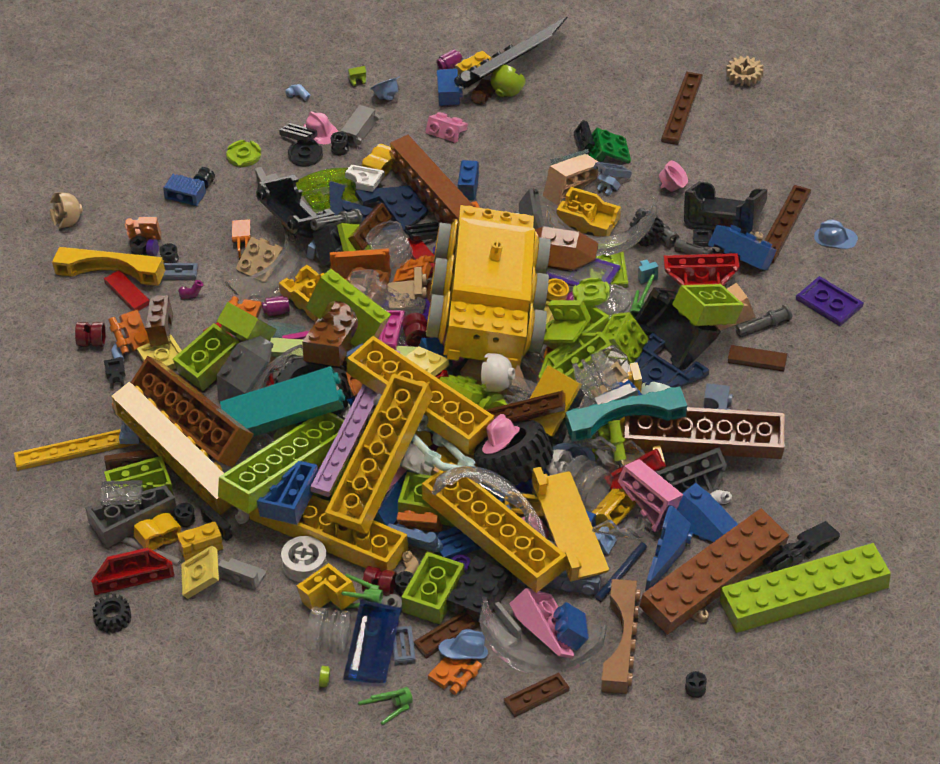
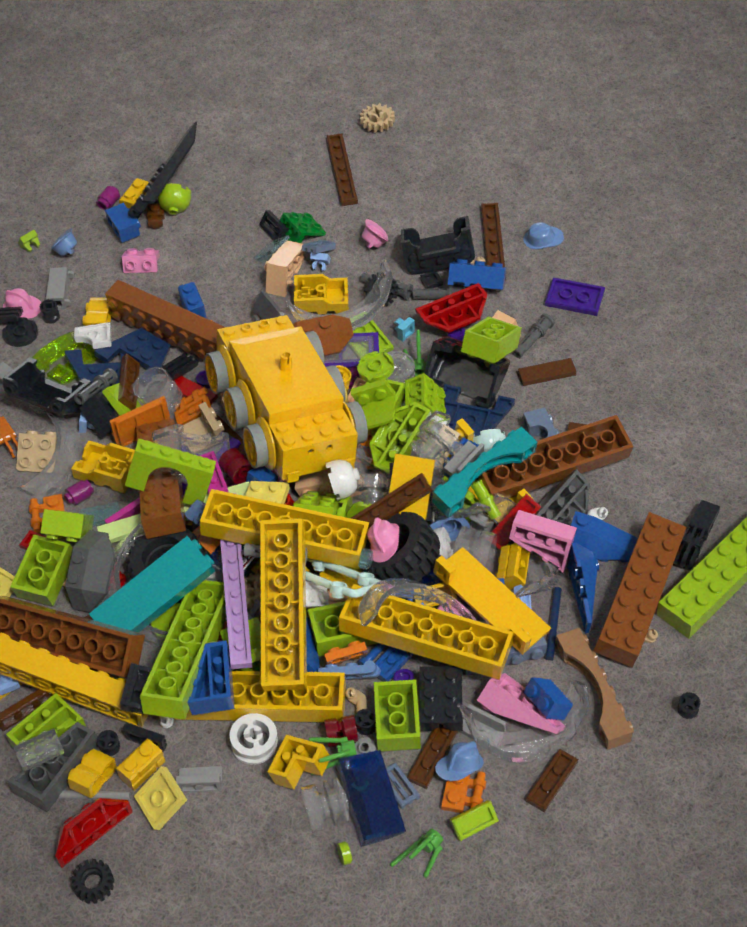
camera: 25 degrees left, 5 degrees up
(221, 466) = (134, 685): none -> black hinge
(448, 696) = (474, 820): none -> lime tile
(474, 445) = (366, 558): none -> clear light blue tile

